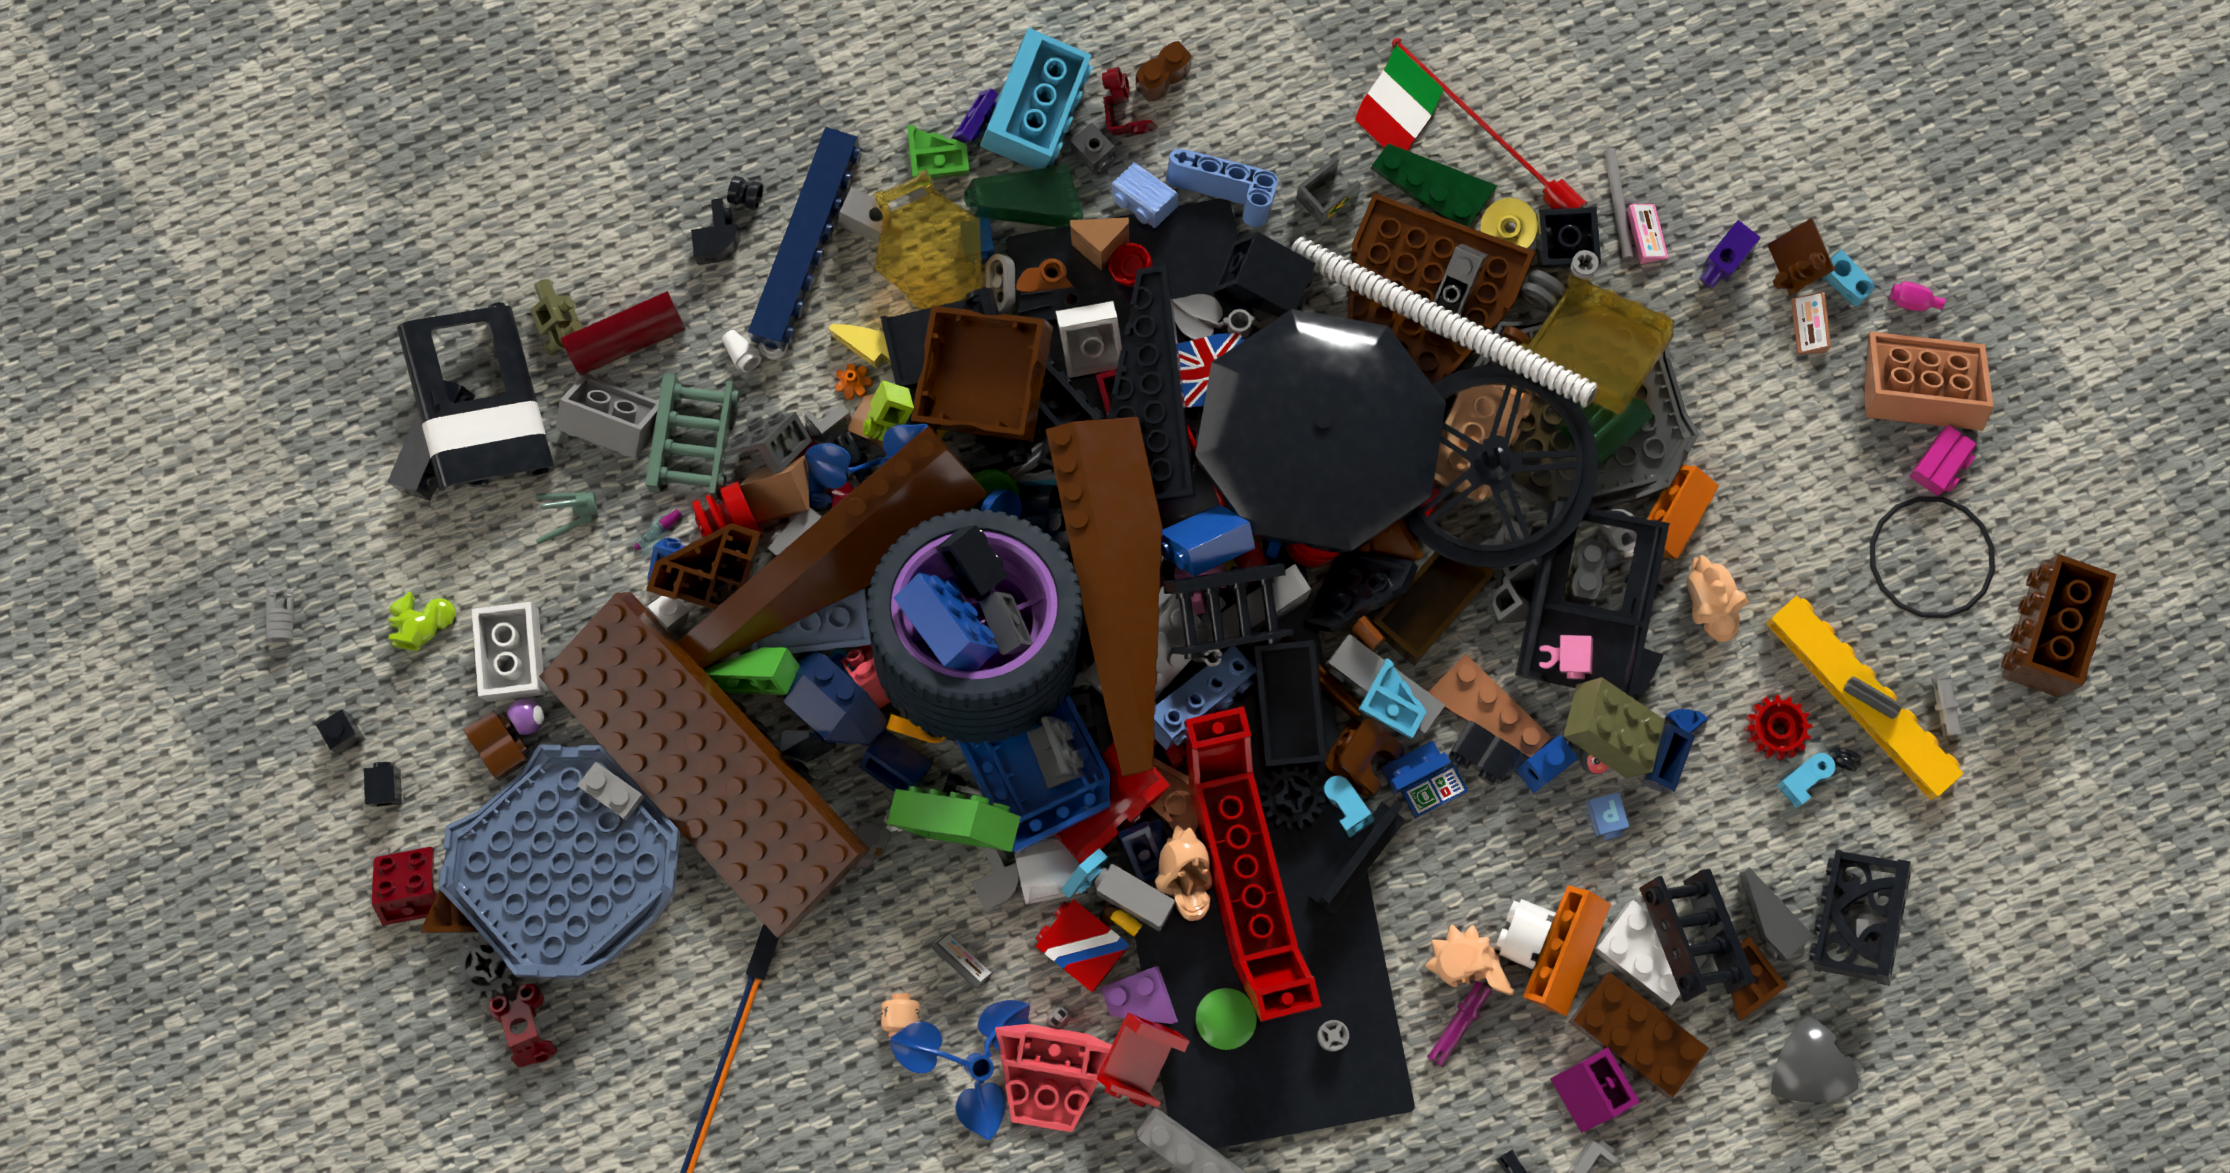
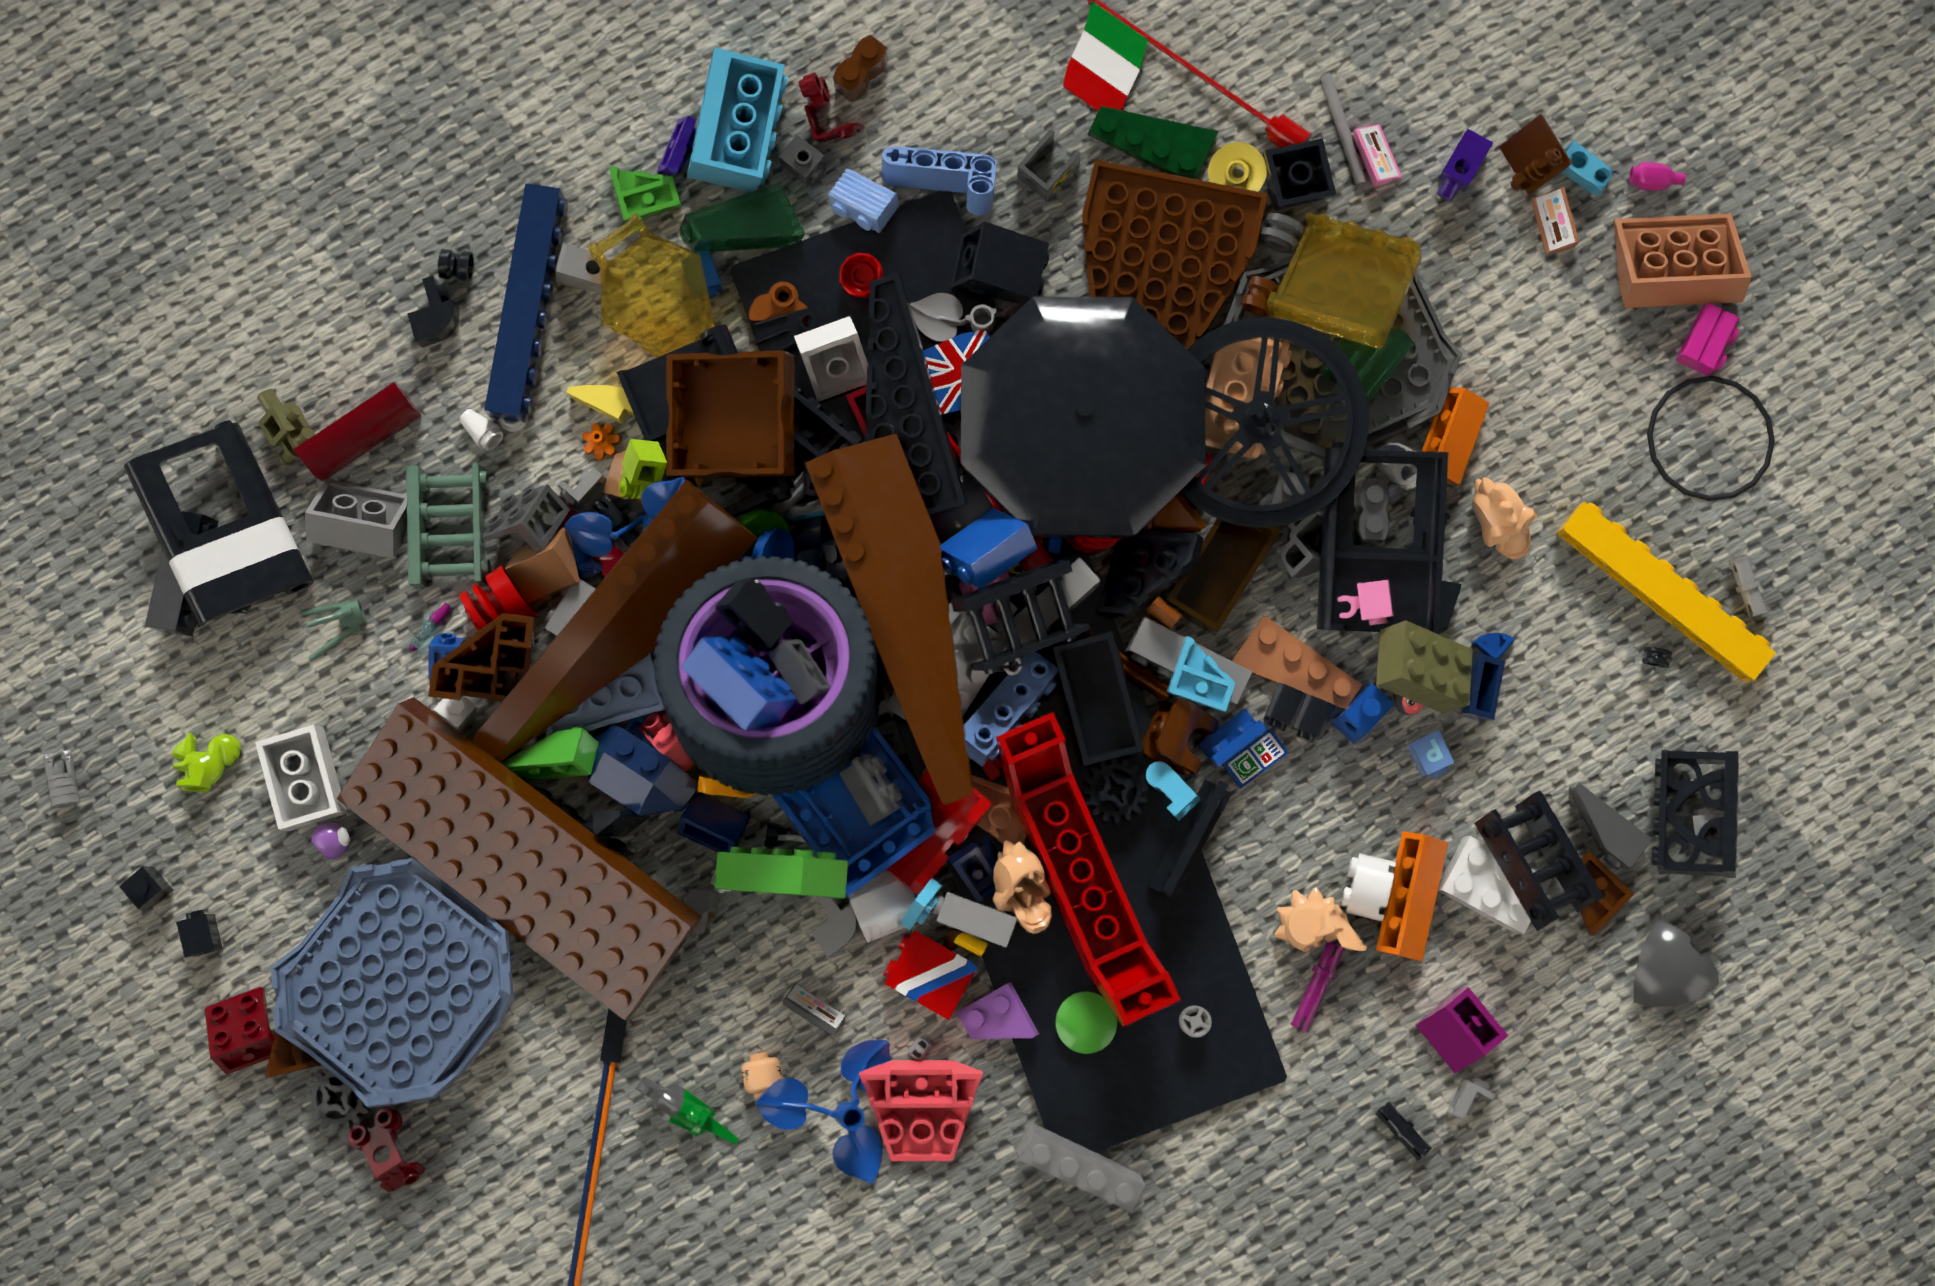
camera: 10 degrees left, 5 degrees up
(497, 745) = (307, 873): reddish brown brick -> none
(611, 791) = (430, 903): light grey plate -> none
(819, 1036) = (684, 1109): none -> animal
(1001, 278) = (733, 312): light grey plate -> none
(1099, 238) = (825, 253): medium nougat slope -> none
(1138, 1059) = (1006, 1079): red panel -> none
(1445, 322) = (1190, 283): white piece -> none
(1459, 279) = (1194, 247): dark grey slope -> none
(1584, 255) = (1317, 191): light grey bush -> none
(1638, 1035) = (1495, 967): reddish brown brick -> none
(1794, 727) = (1601, 634): red gear -> none
(1803, 777) = (1619, 681): medium azure leg -> none
(1872, 697) = (1675, 592): dark grey axle -> none
(2058, 625) = (1848, 489): reddish brown brick -> none

